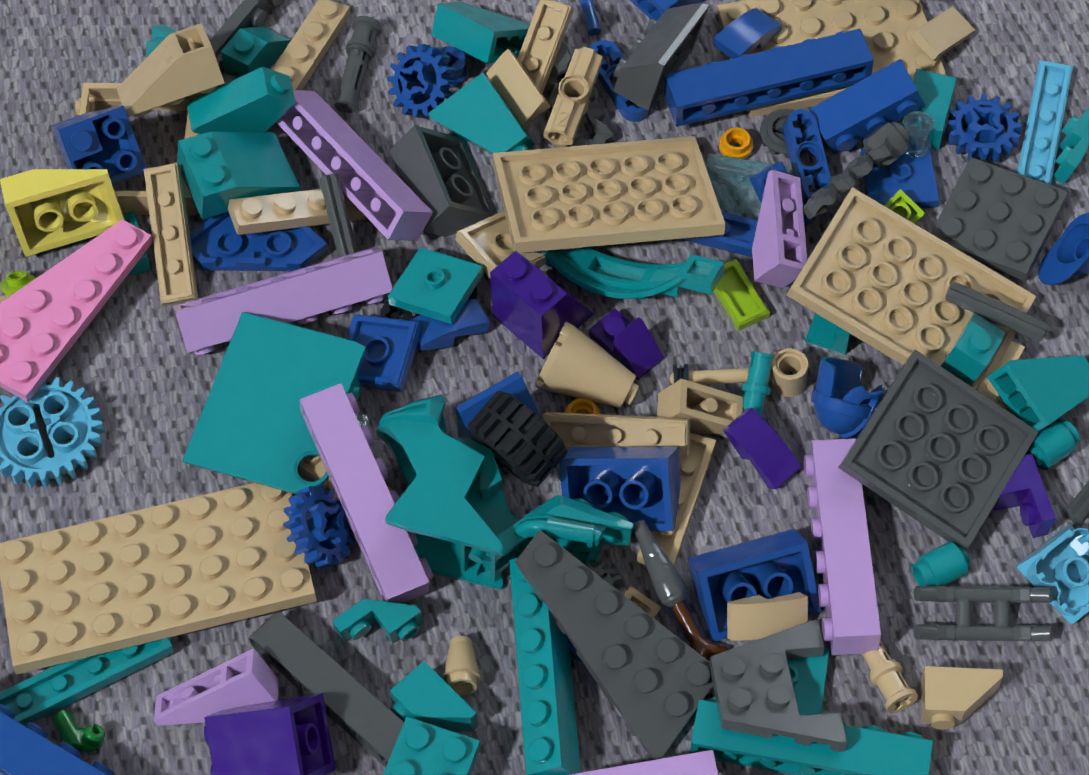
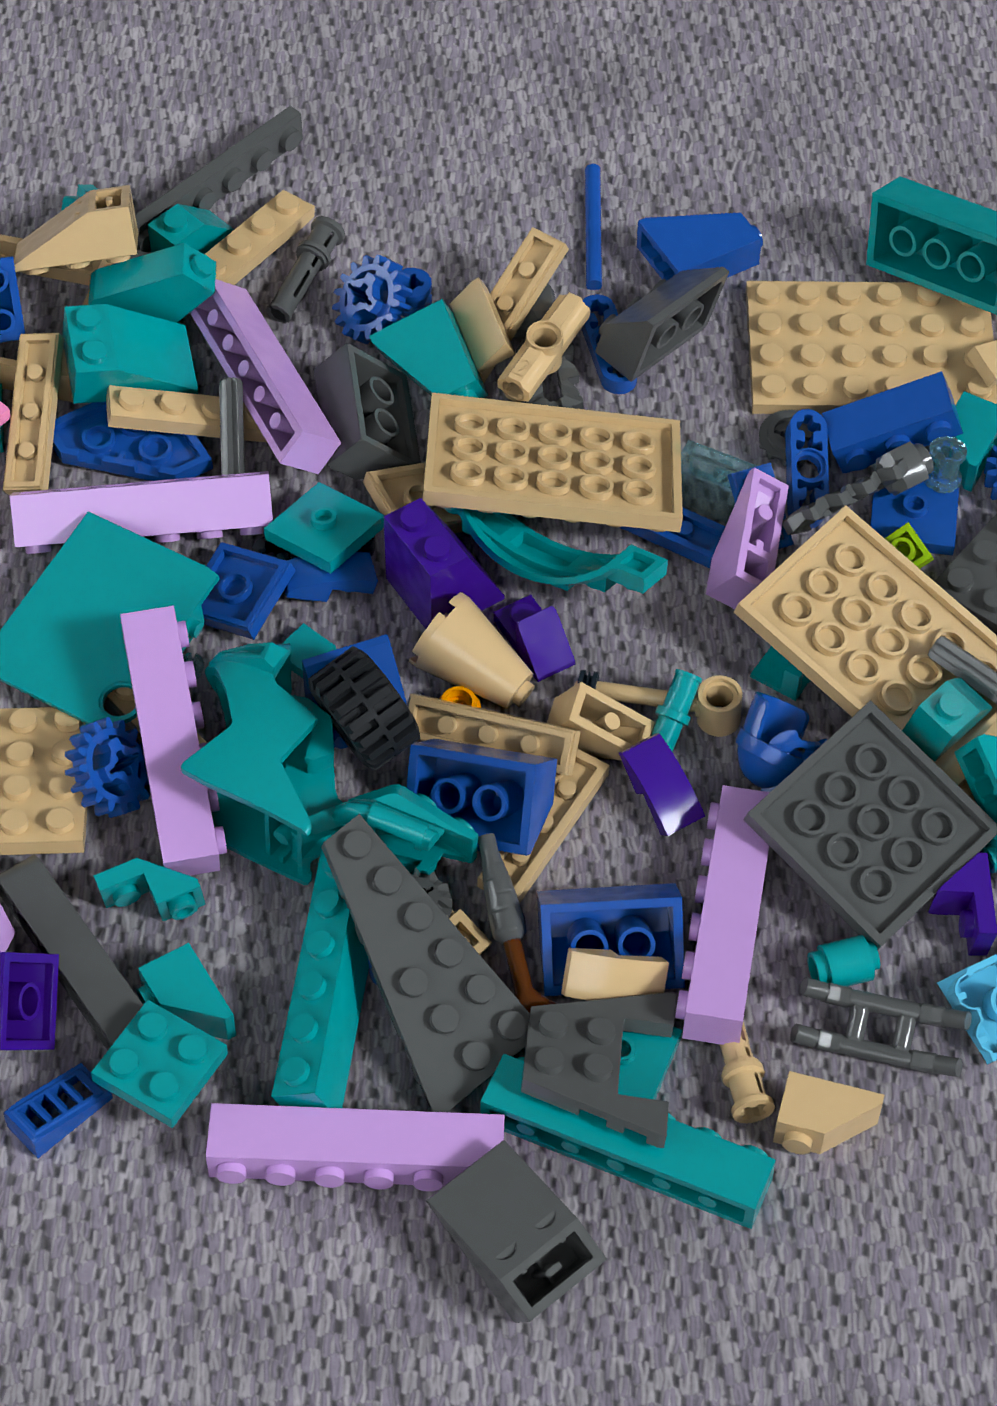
camera: 10 degrees right, 5 degrees down
(451, 387) = (306, 644): none -> teal tile
(461, 666) = (234, 962): tan cone -> none
(478, 30) = (452, 255): teal slope -> none
(736, 136) = (727, 430): light orange plate -> none
(740, 297) = (683, 609): lime tile -> none
(746, 33) = (770, 314): blue slope -> none
(767, 77) = (780, 367): blue brick -> none

